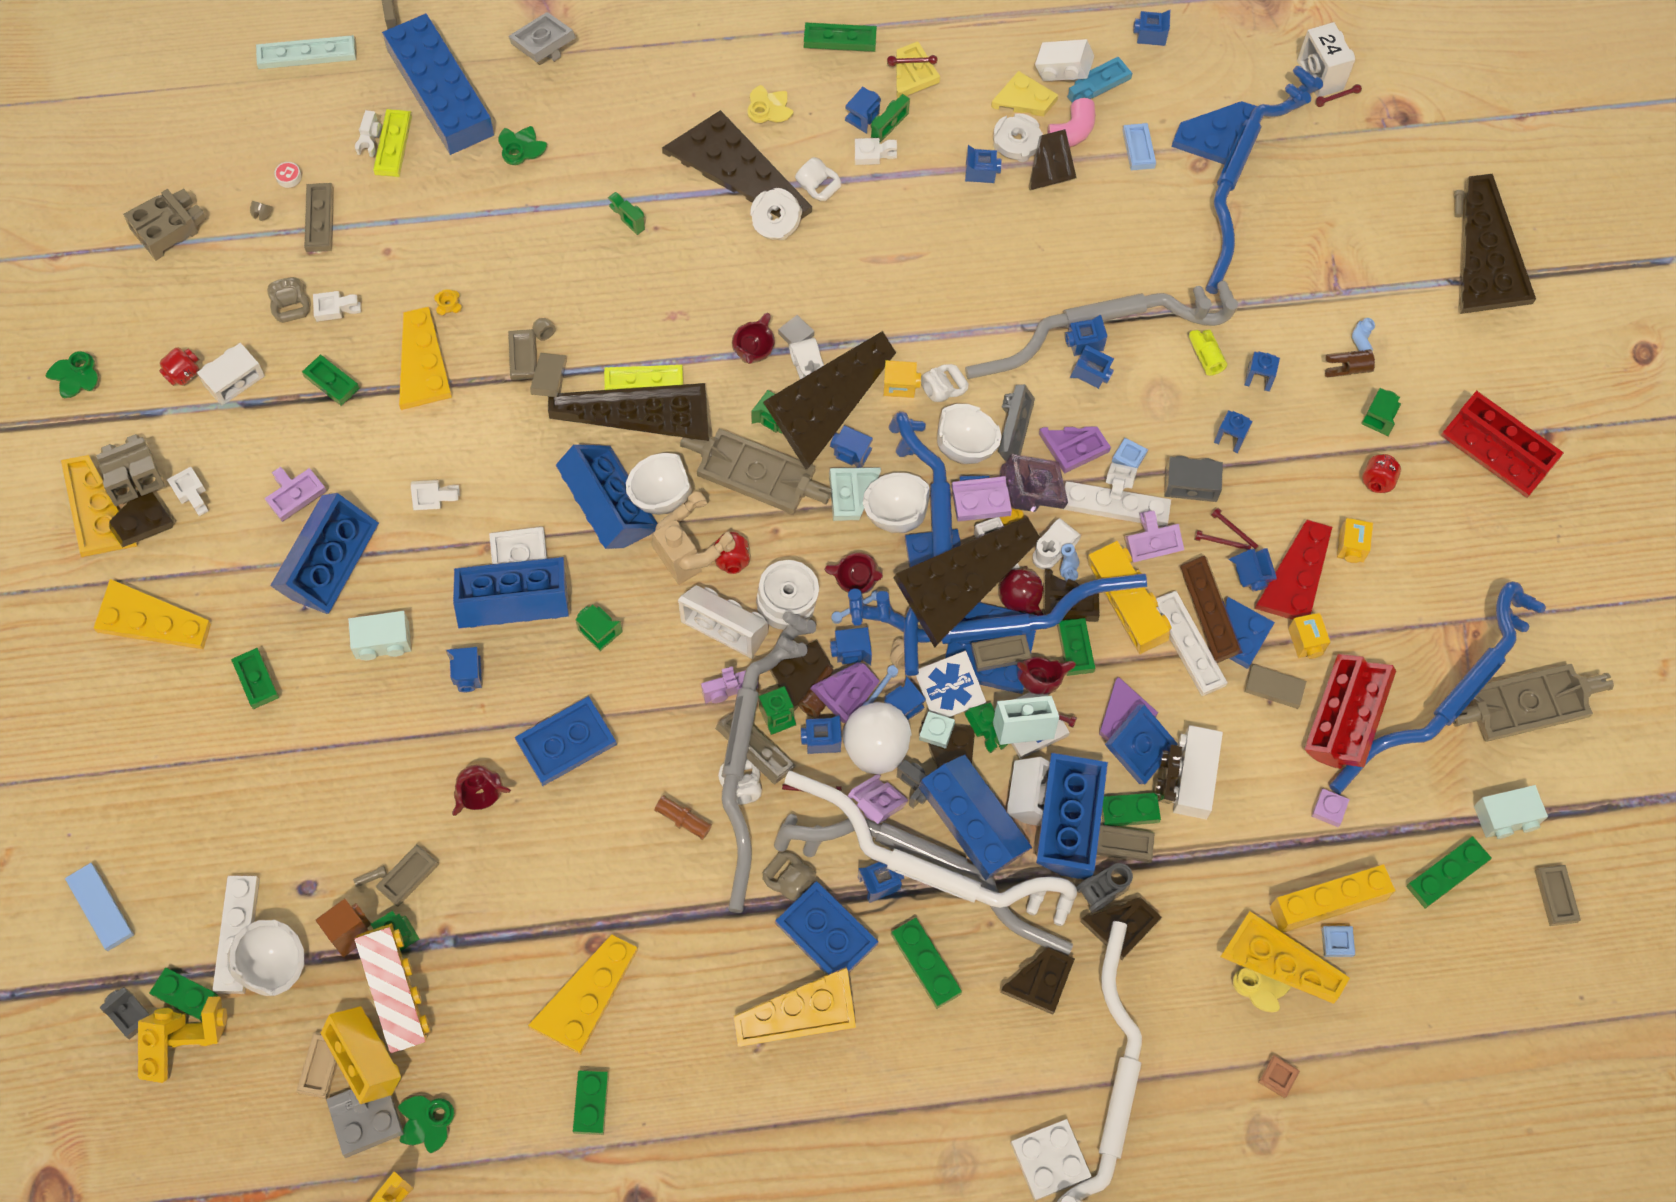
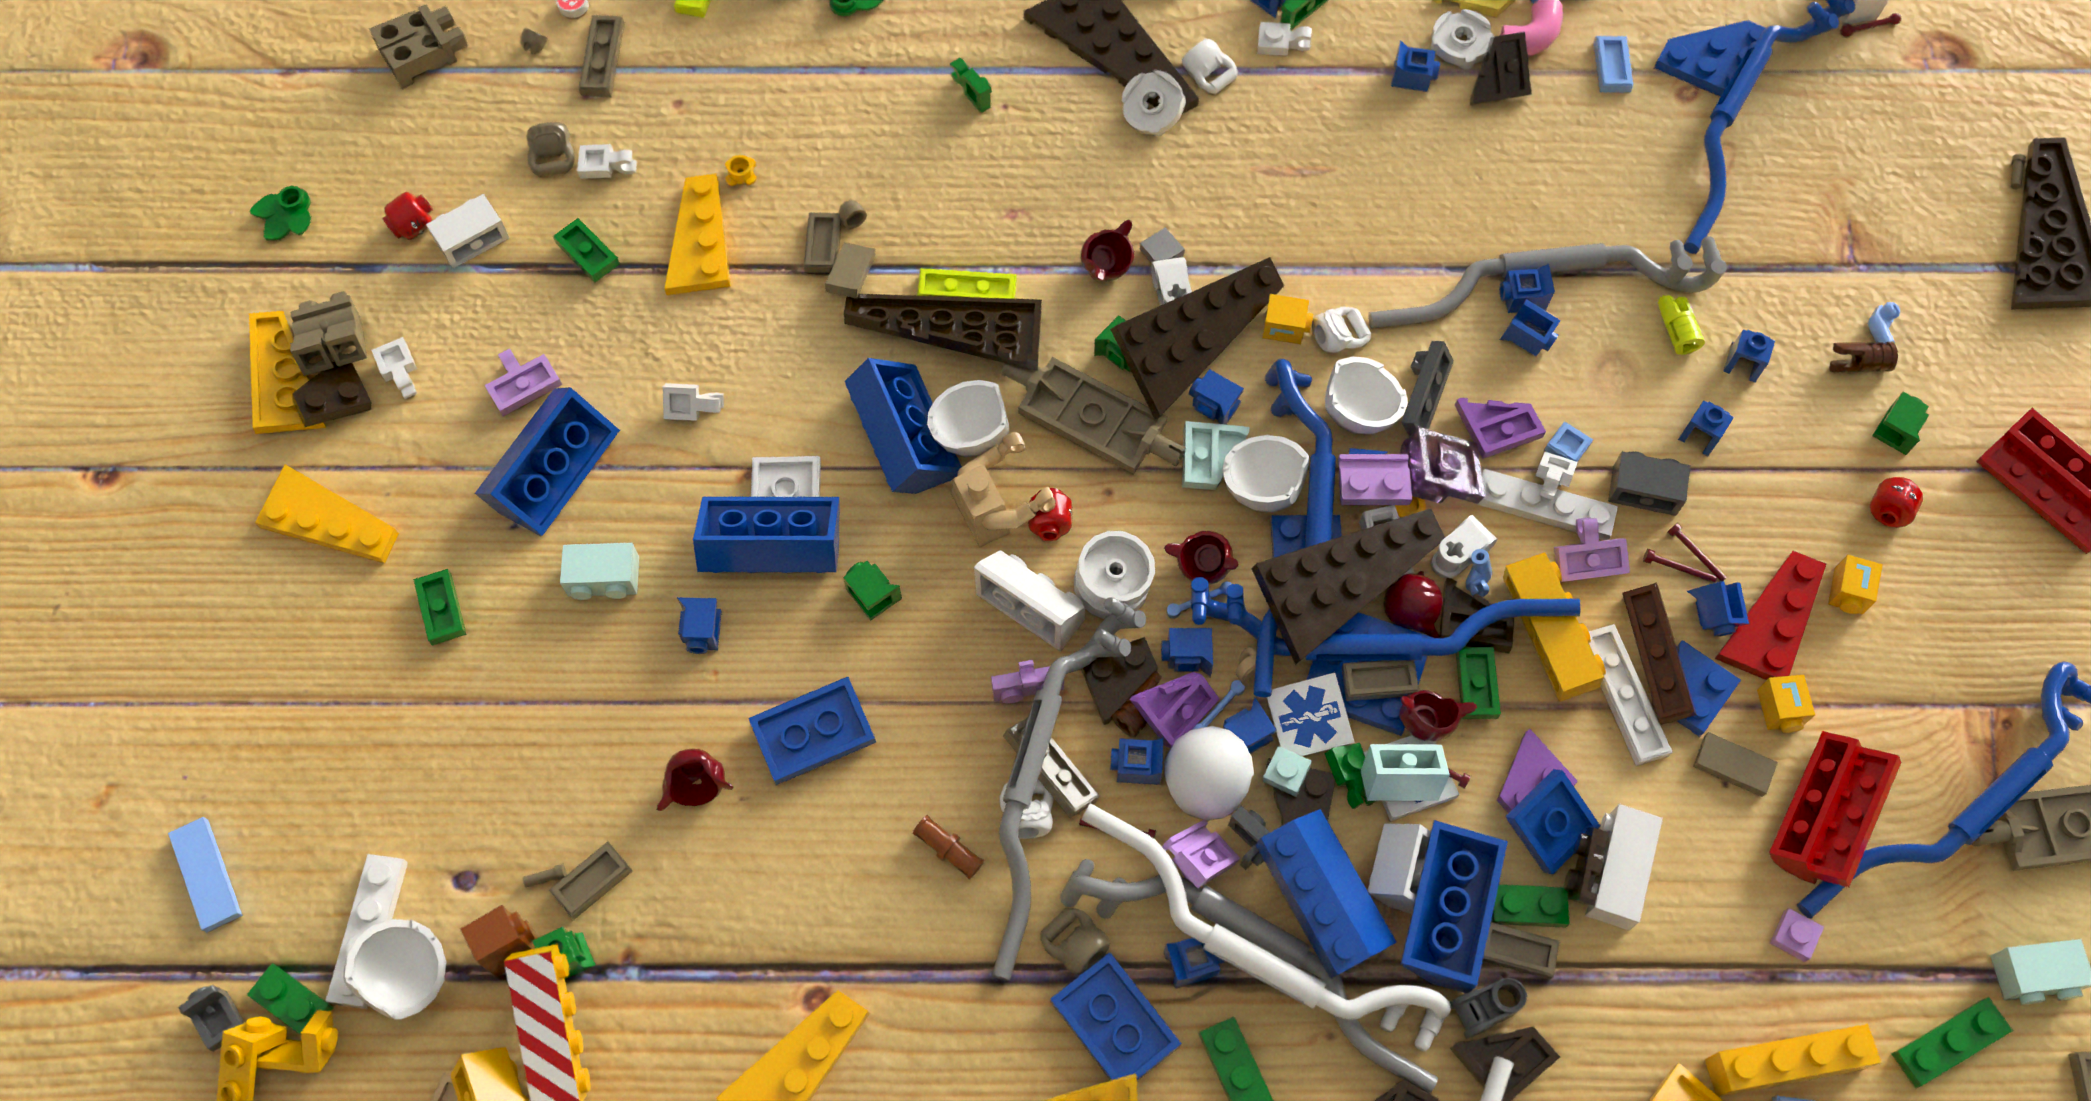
camera: 10 degrees right, 0 degrees up
(777, 710) = (1084, 722): green window -> none

